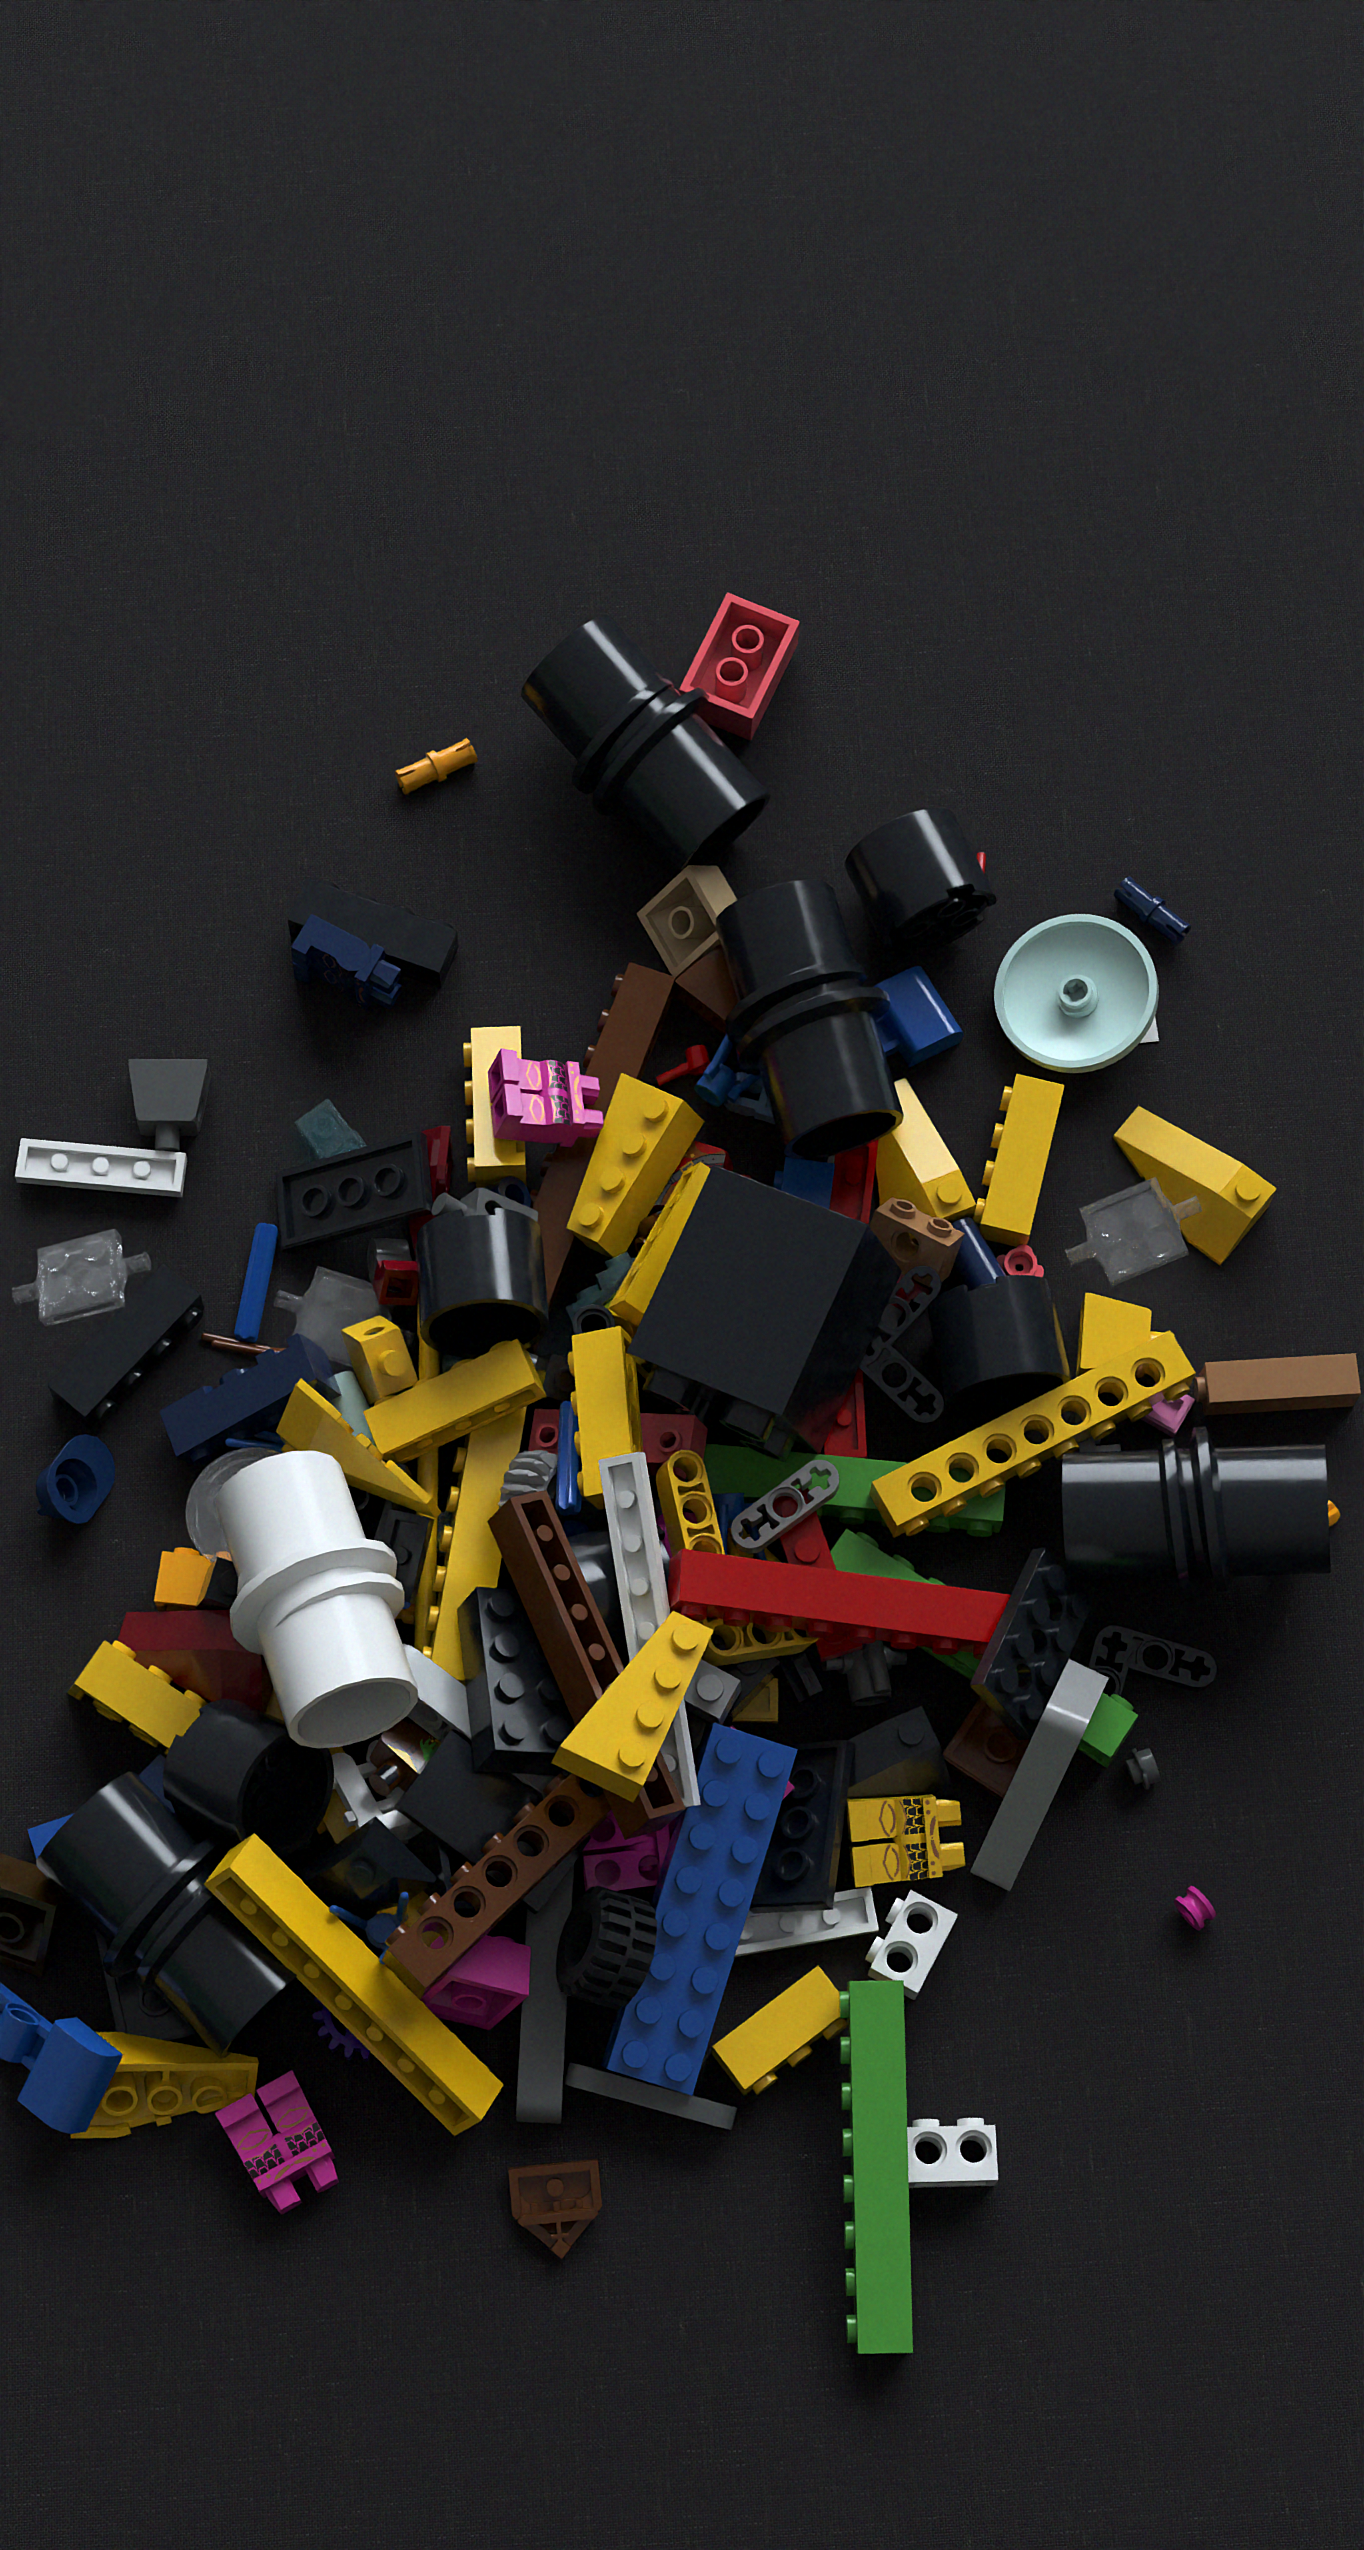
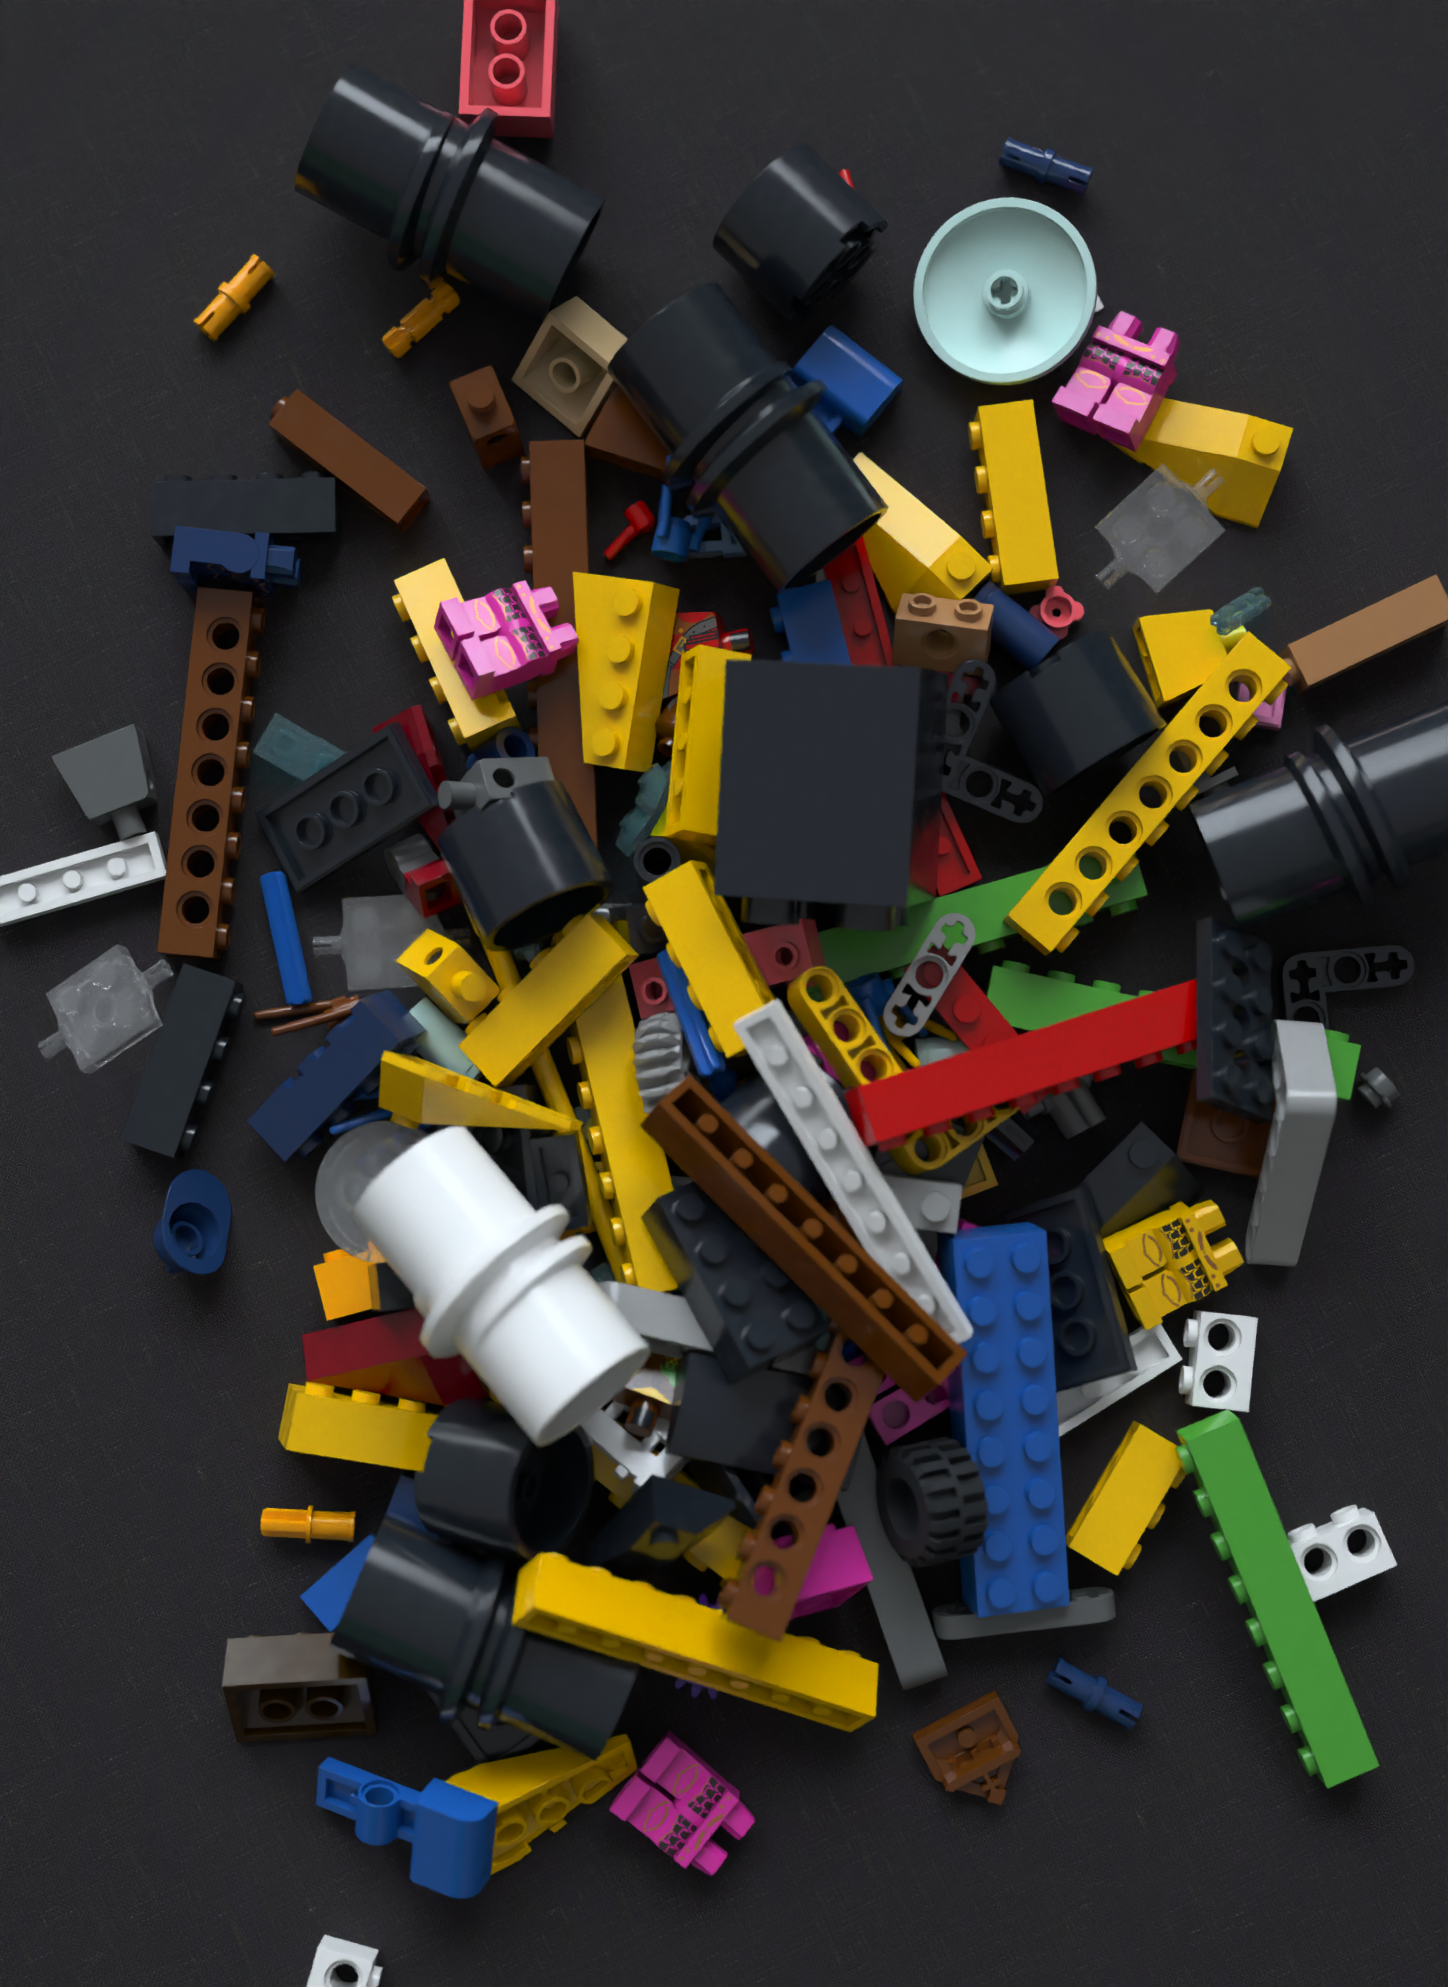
camera: 20 degrees left, 15 degrees up
(61, 1770) = (308, 1524): none -> light orange axle
(311, 1003) = (214, 614): none -> reddish brown brick
(379, 1926) = (700, 1570): blue plant -> none
(478, 926) = (349, 460): none -> reddish brown brick
(581, 839) = (421, 320): none -> light orange axle
(603, 926) = (486, 416): none -> reddish brown torso
(631, 1719) = (885, 1284): yellow wedge -> none
(684, 2194) = (1094, 1693): none -> dark blue pin
(1145, 1100) = (1119, 382): none -> dark pink hips
(1175, 1320) = (1240, 611): none -> clear light blue axle

